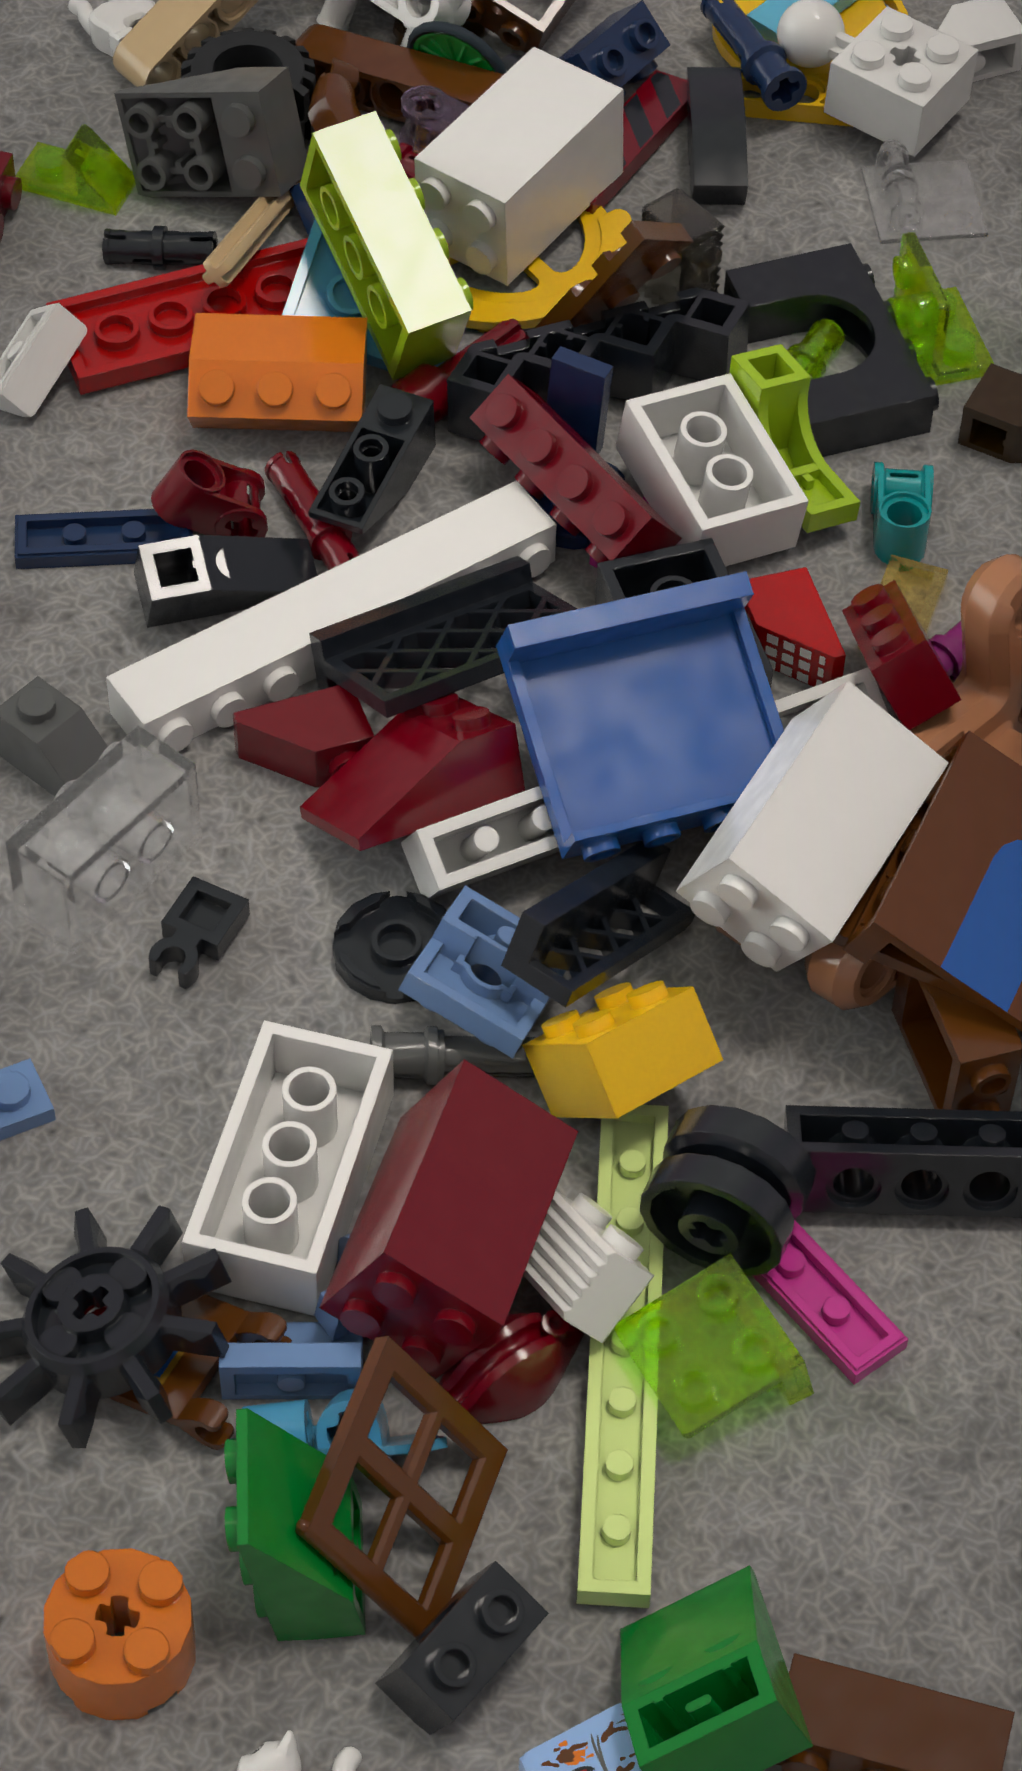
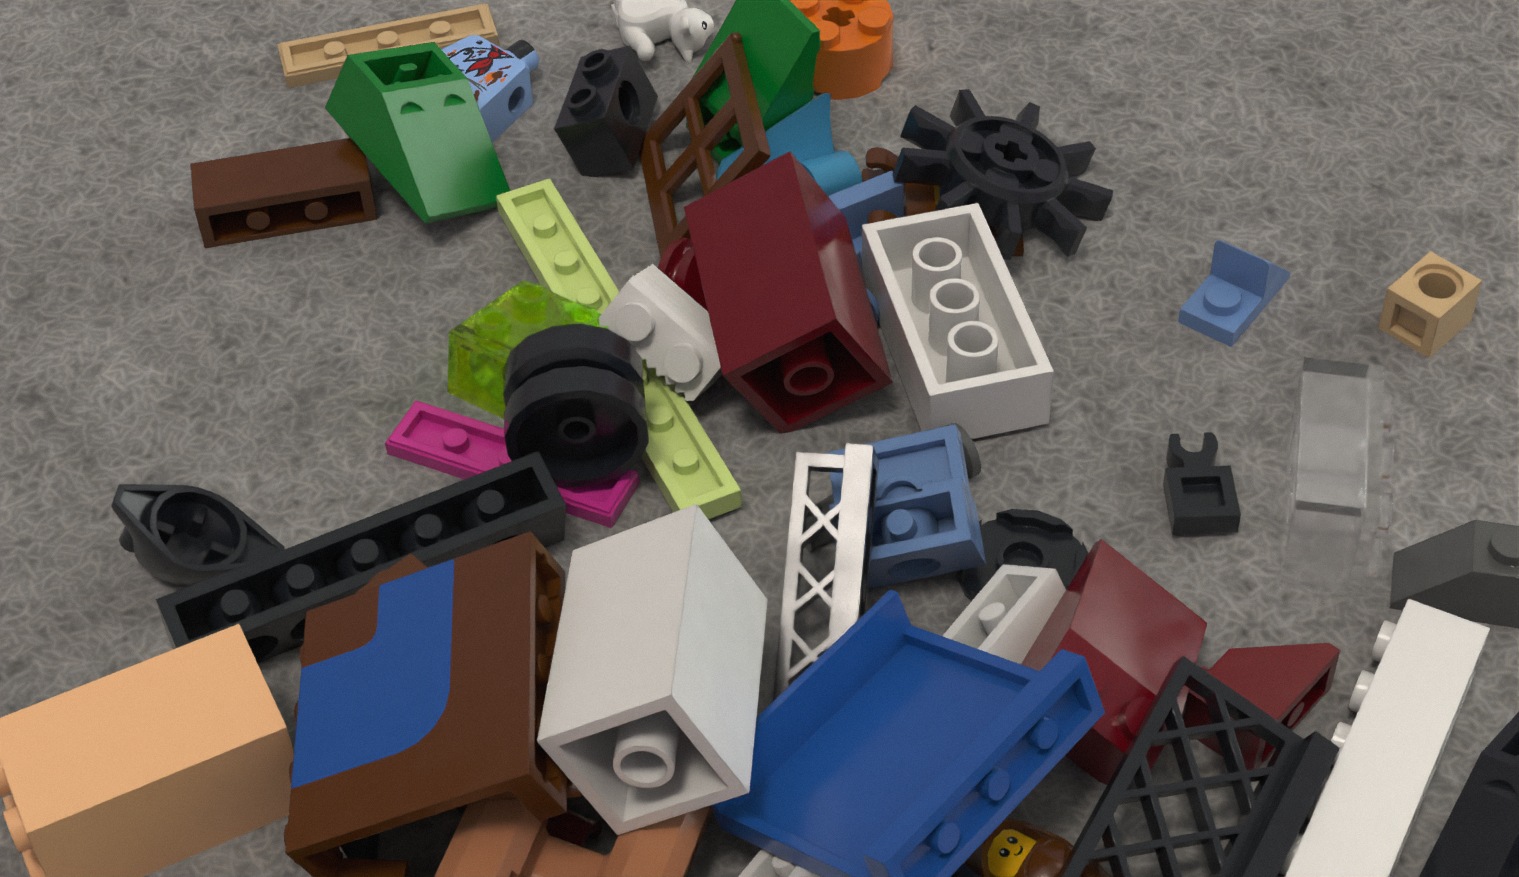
camera: 155 degrees right, 5 degrees down
(621, 1050) = (741, 475): yellow brick -> none

